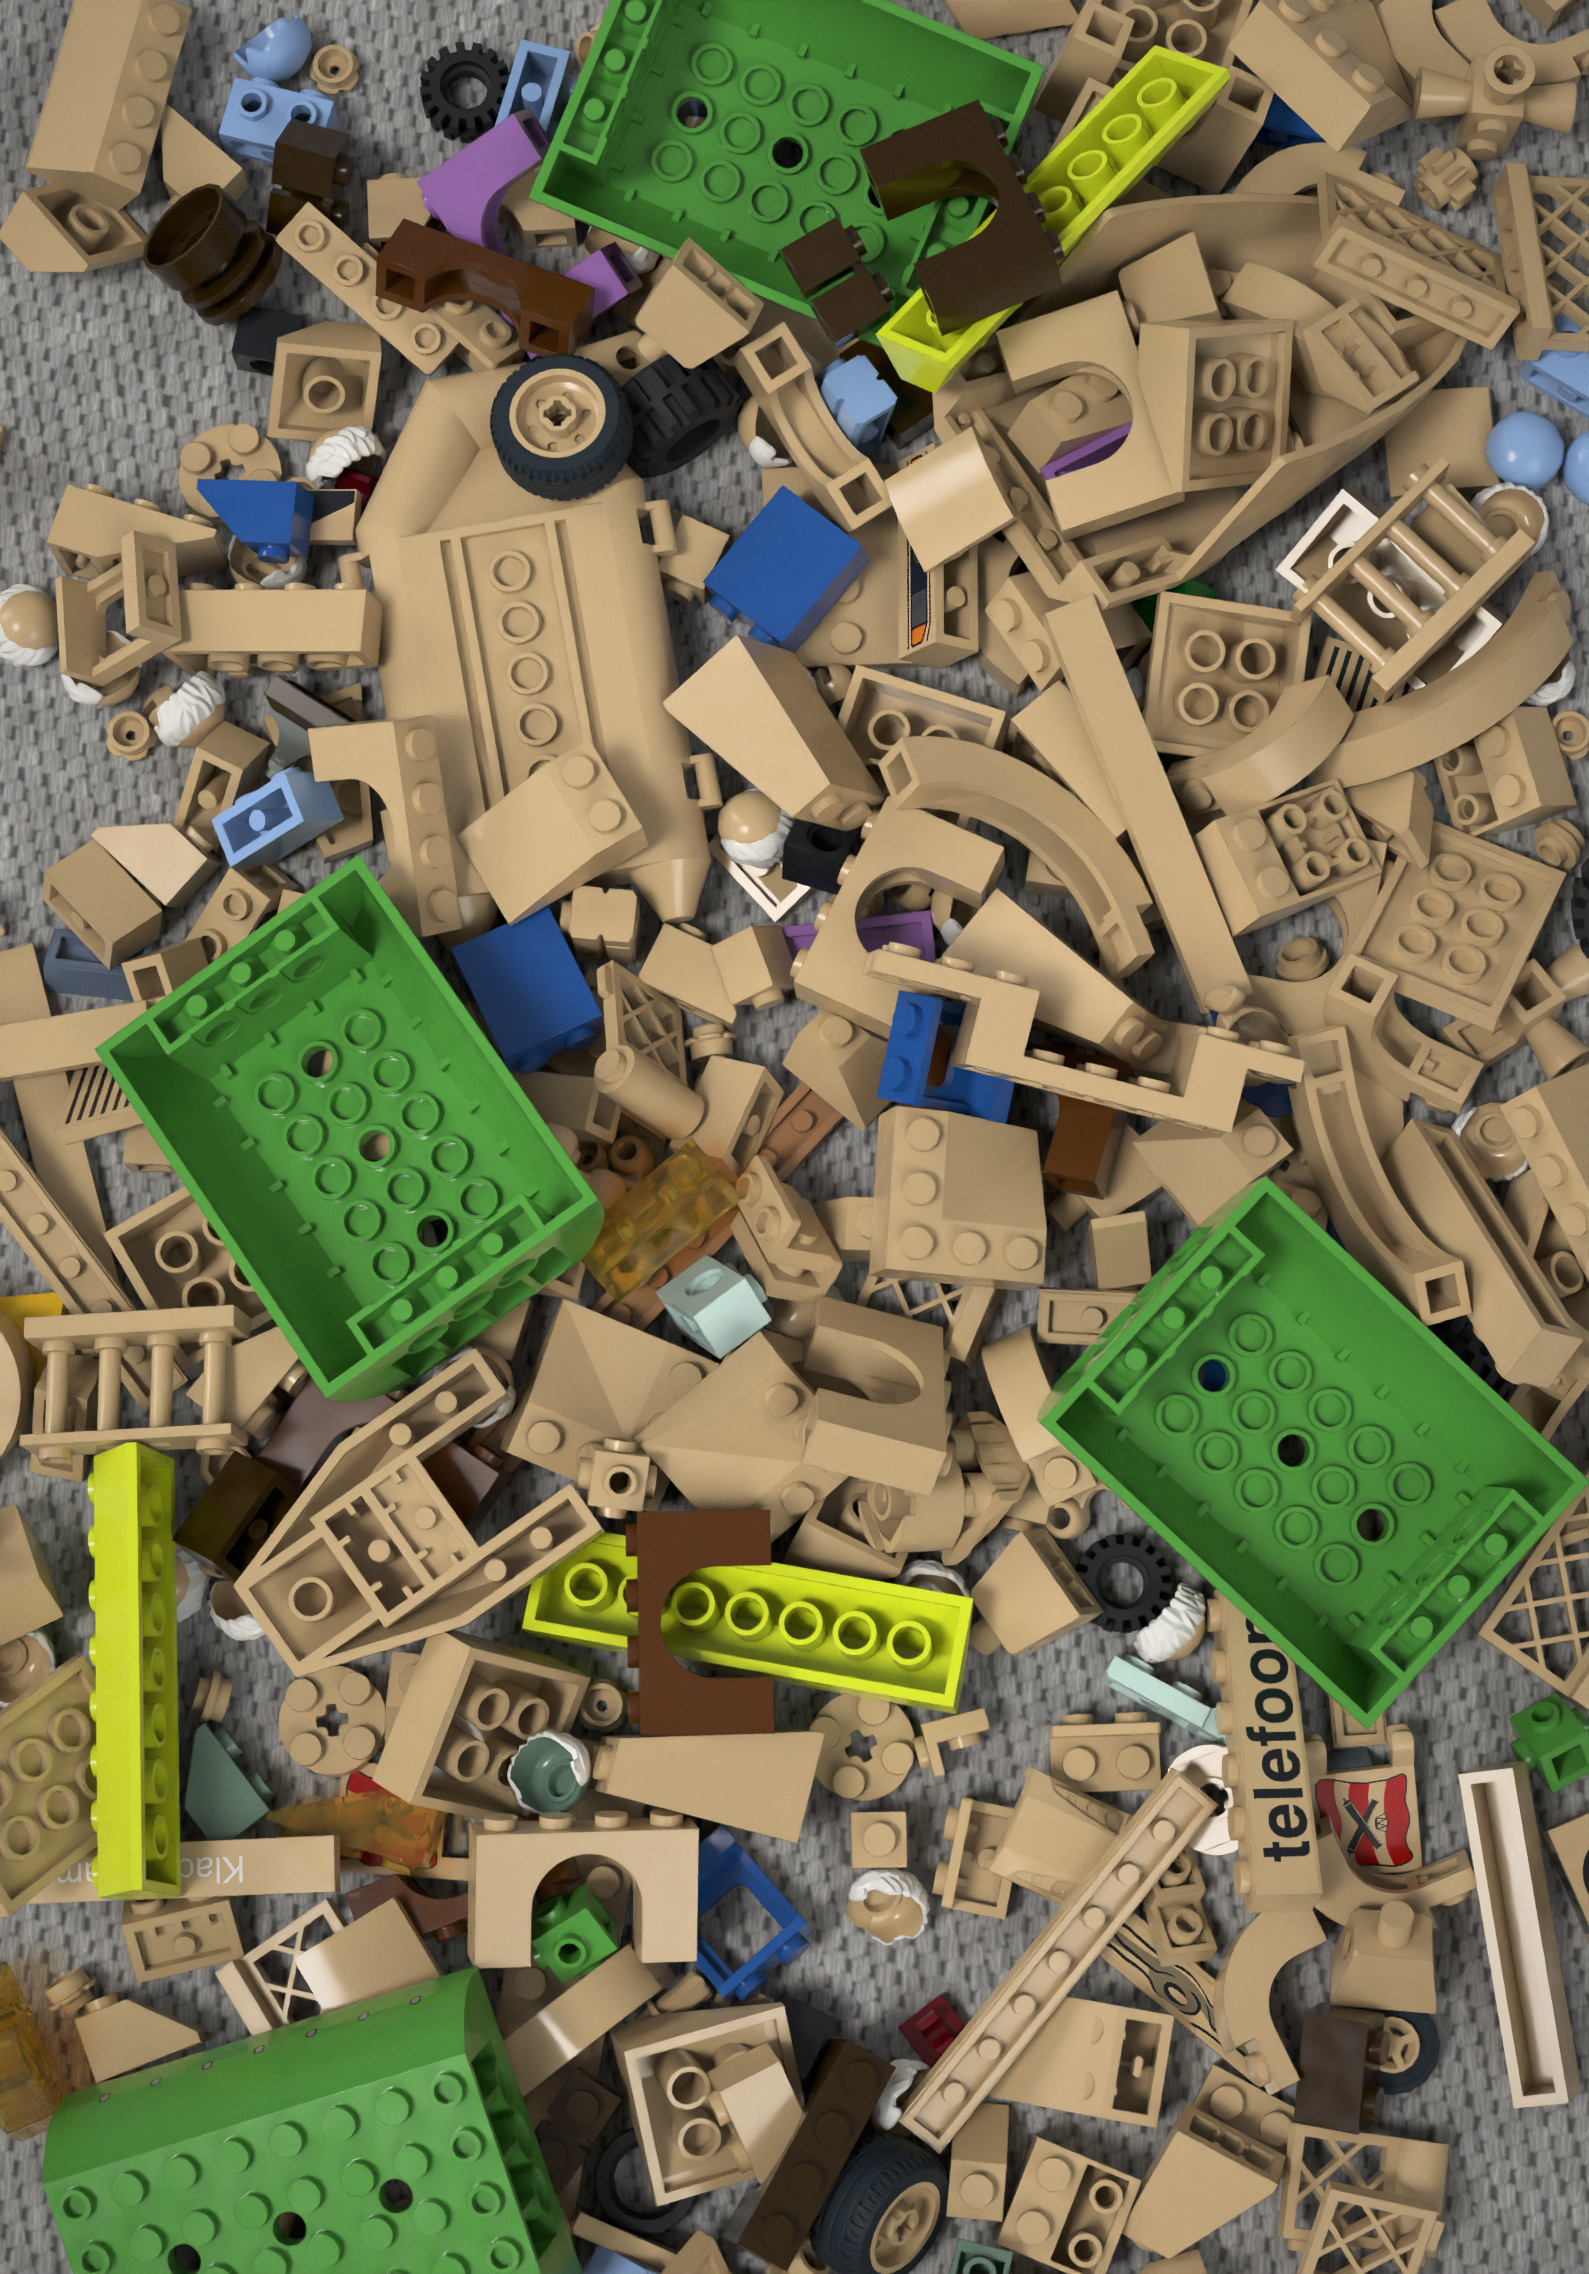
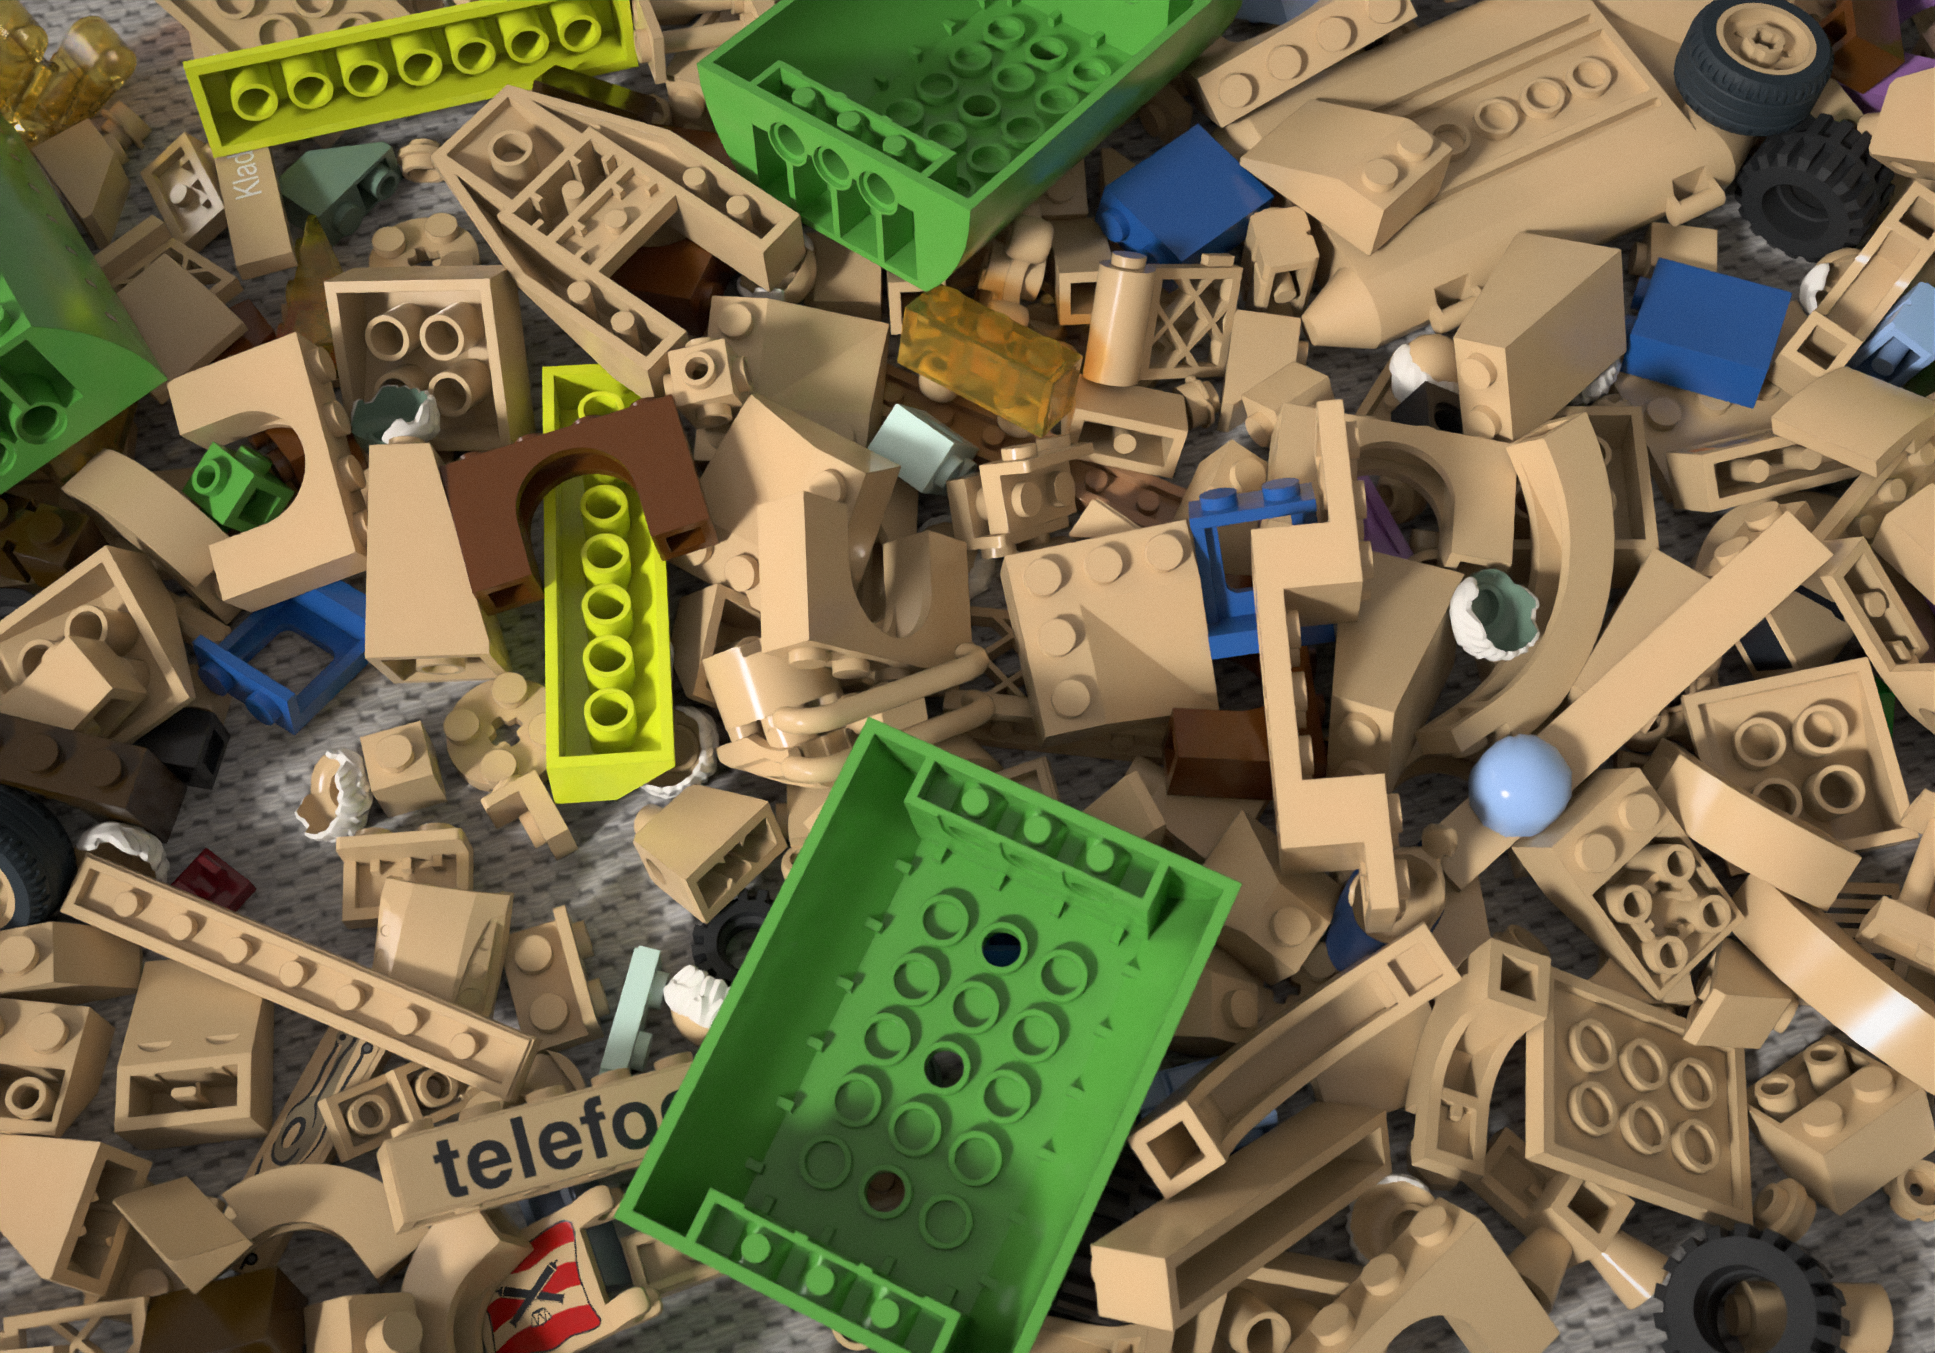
camera: 70 degrees right, 15 degrees down
(840, 1168) = (1100, 521): none -> tan slope
(993, 1406) = (895, 704): none -> tan piece
(1045, 879) = (1493, 616): none -> hair
(1194, 916) = (1520, 786): none -> light blue hair
(1259, 2077) = (184, 1230): none -> tan slope

